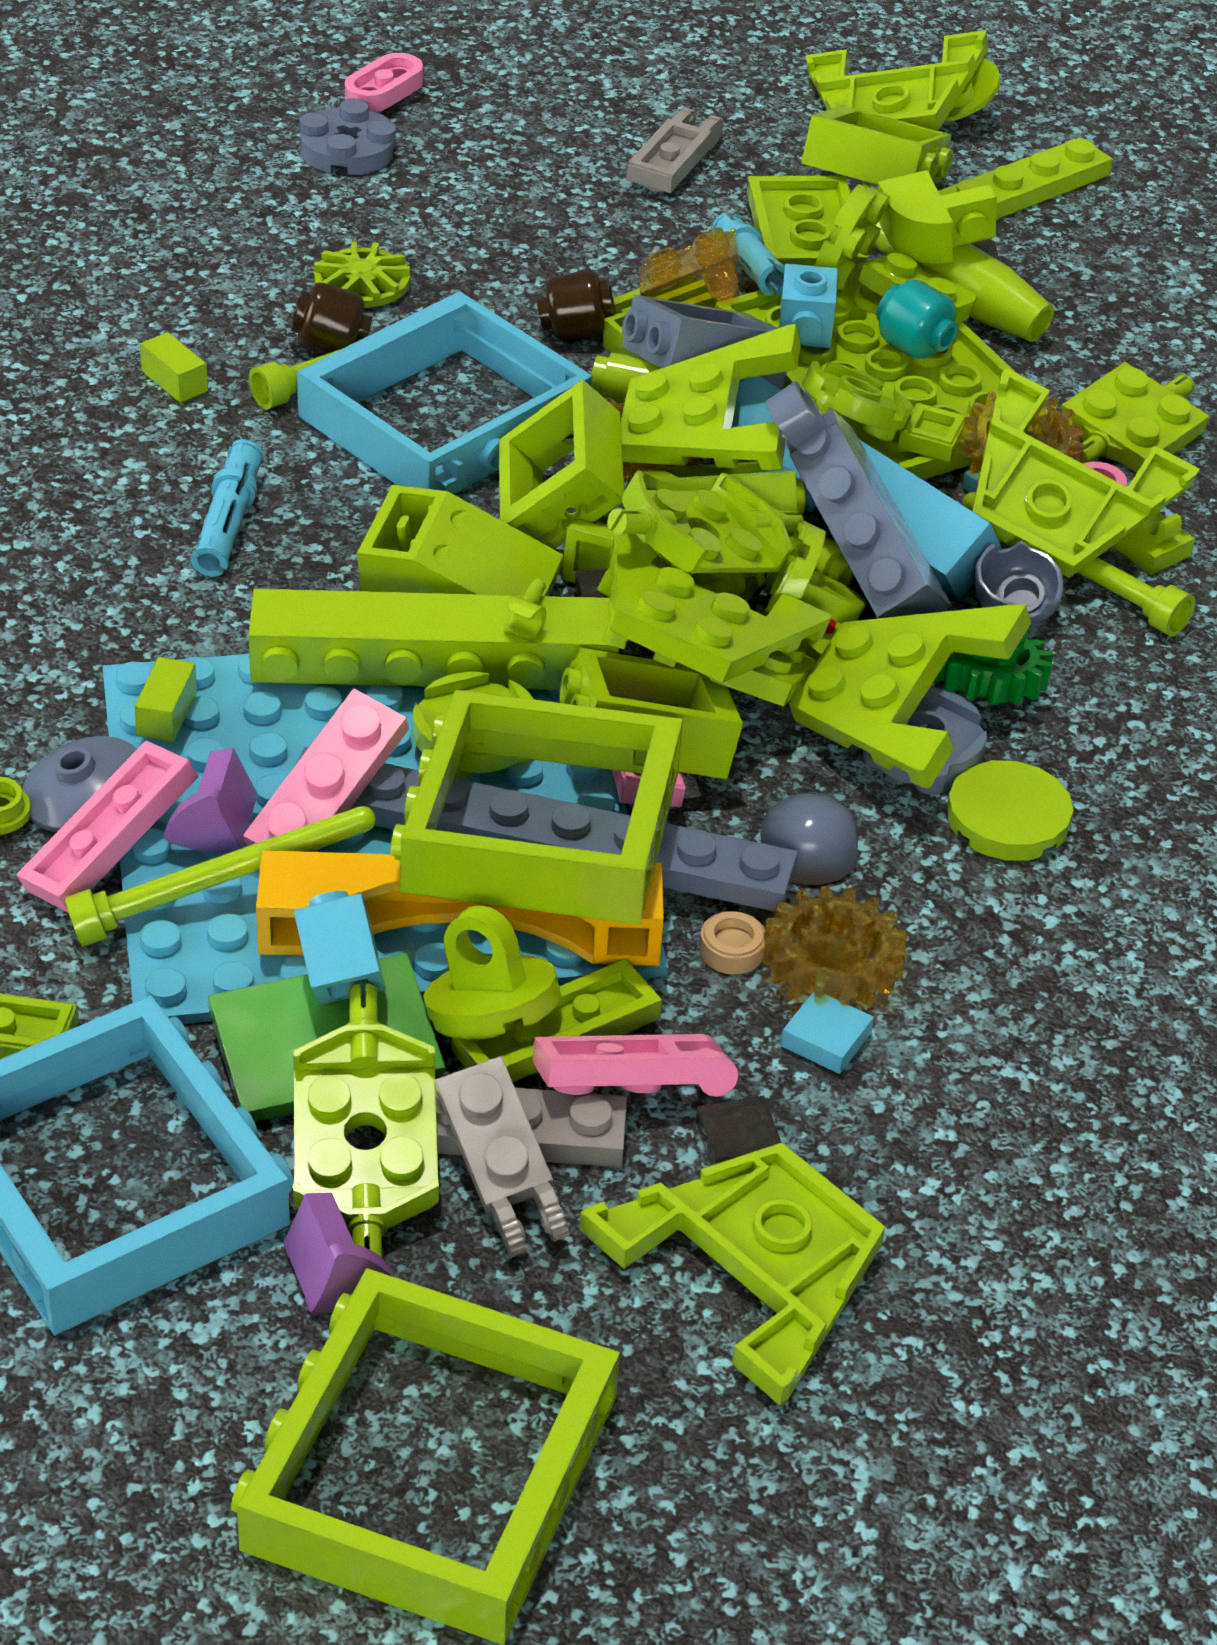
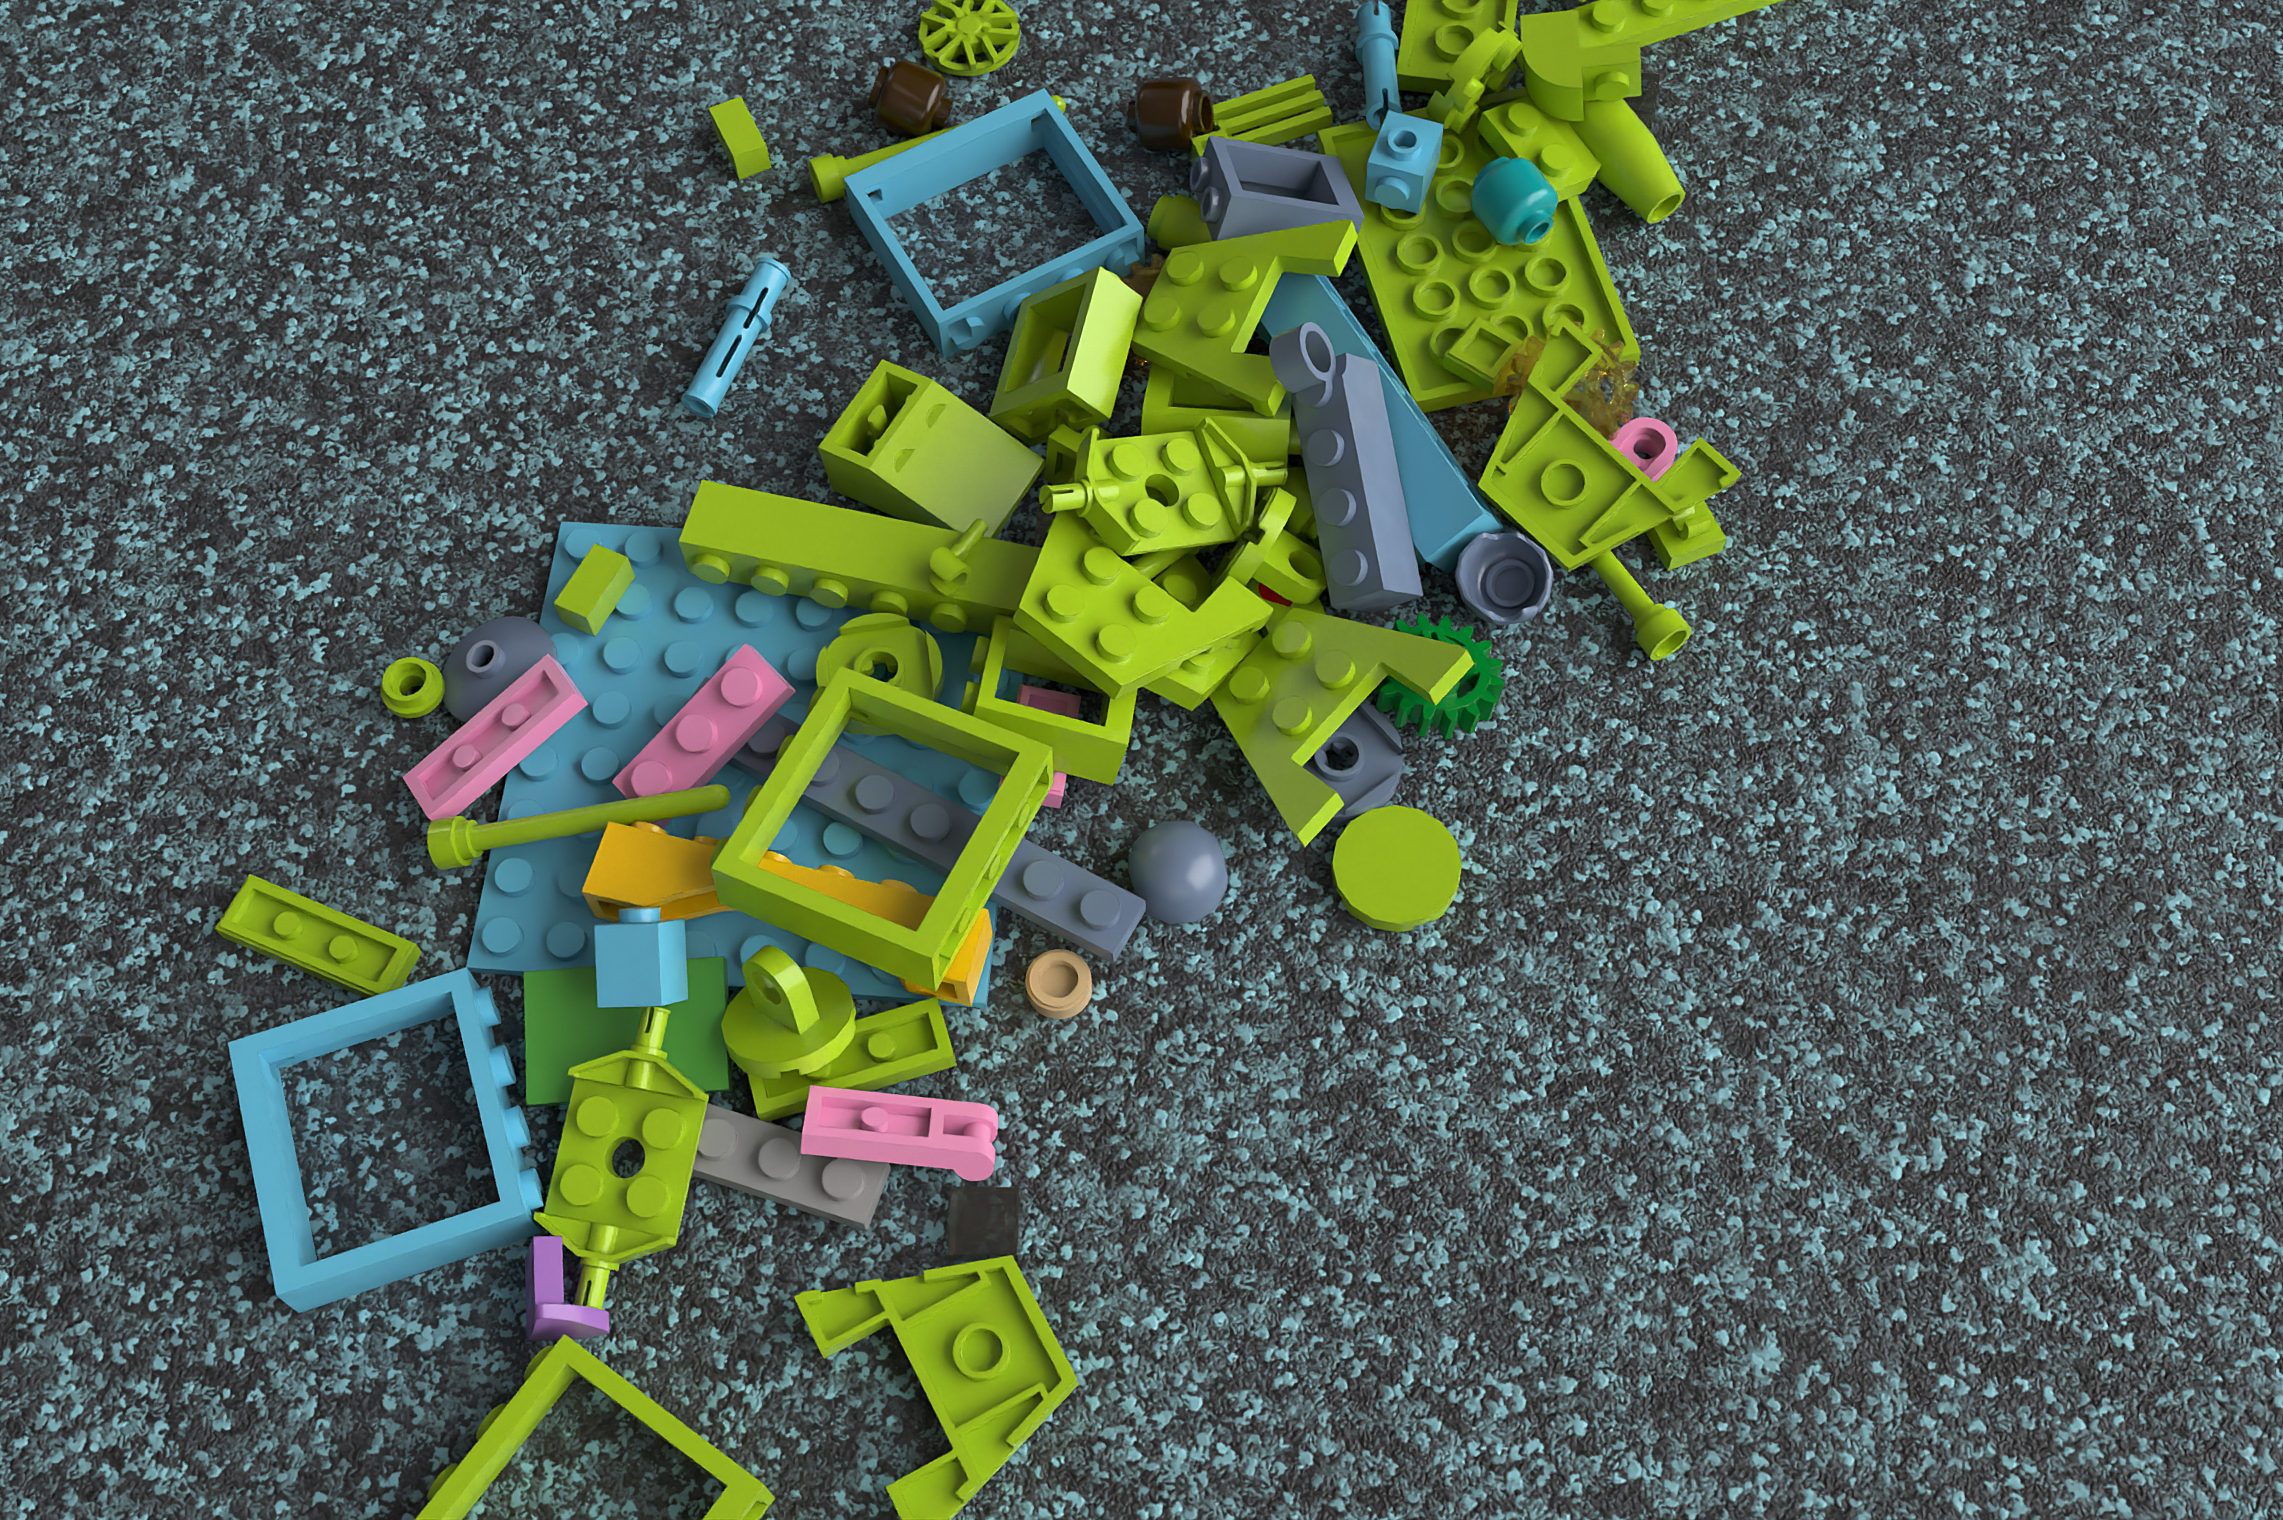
camera: 20 degrees right, 20 degrees up
(219, 811) = (601, 740): medium lavender tile -> none
(500, 1149) = (741, 1211): light grey hinge -> none
(711, 256) = (1314, 74): clear yellow hinge -> none
(827, 1032) = (1114, 1114): medium azure tile -> none
(834, 947) = (1125, 1030): clear yellow gear -> none
(858, 398) = (1403, 310): lime plate -> none
(1132, 413) = (1723, 354): lime plate -> none

